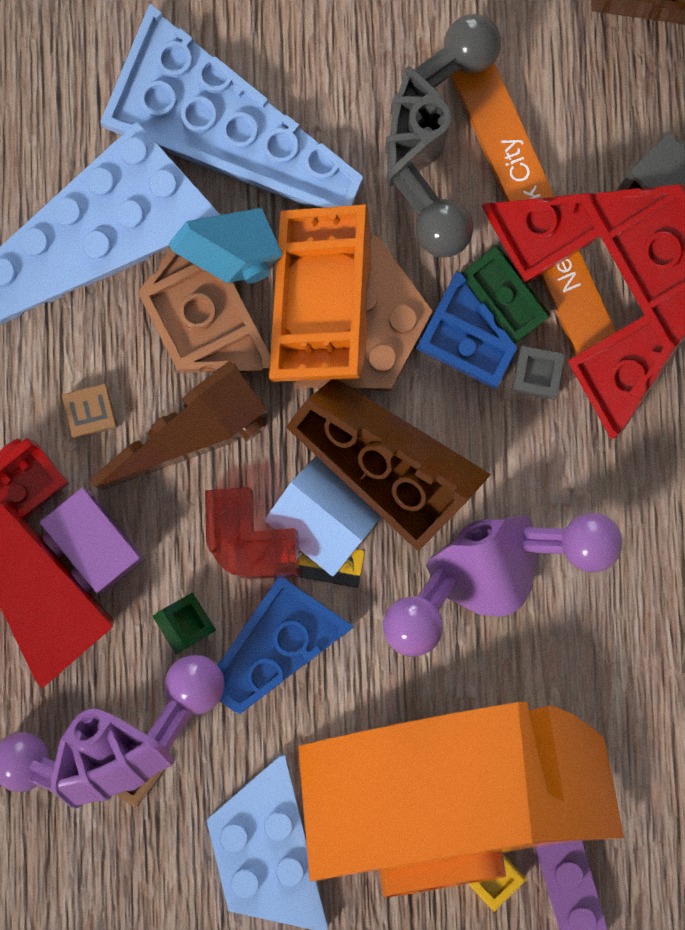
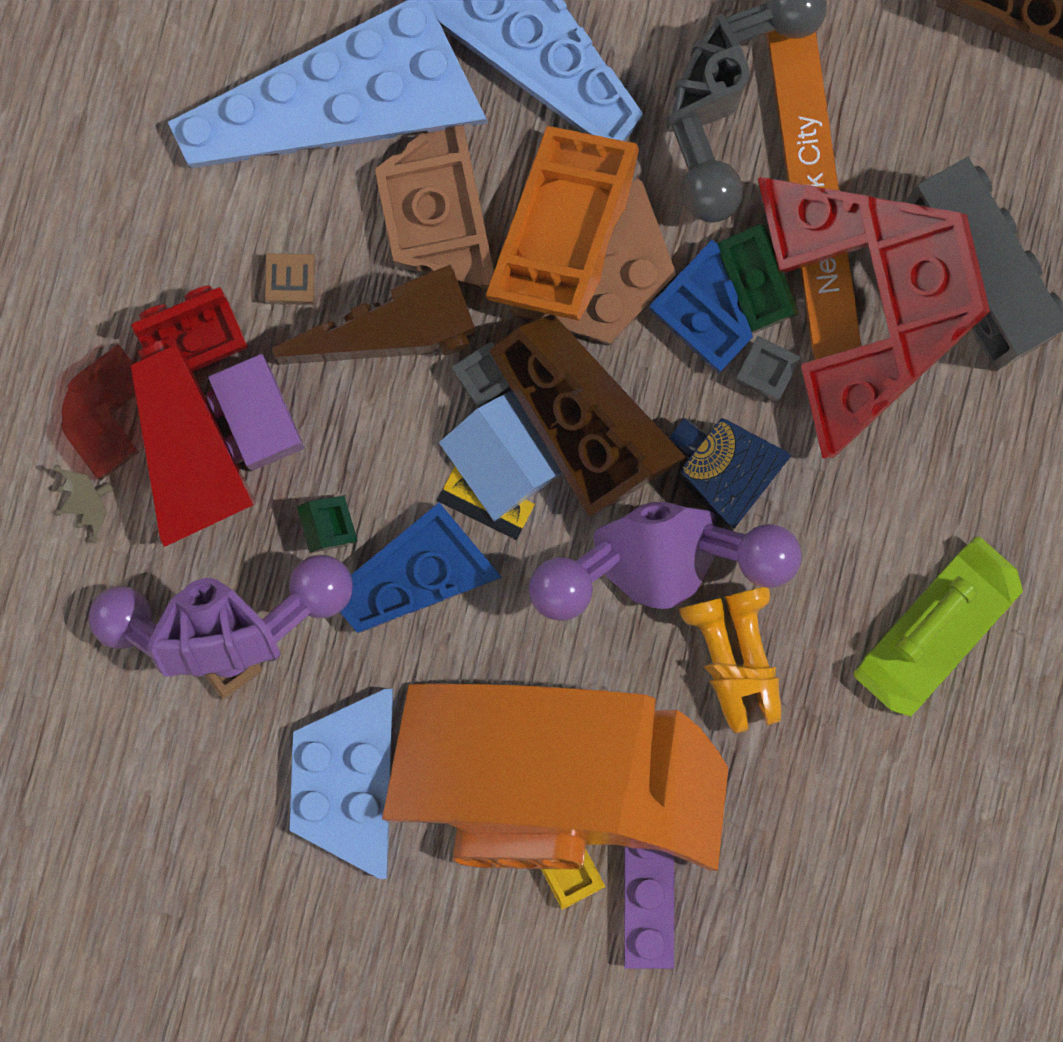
camera: 15 degrees right, 0 degrees up
(229, 245) = (484, 147): dark azure slope -> none
(239, 547) = (408, 464): clear red plate -> none
(285, 451) = (481, 376): none -> dark grey plate
(528, 471) = (727, 467): none -> dark blue torso
(584, 660) = (730, 679): none -> light orange piece

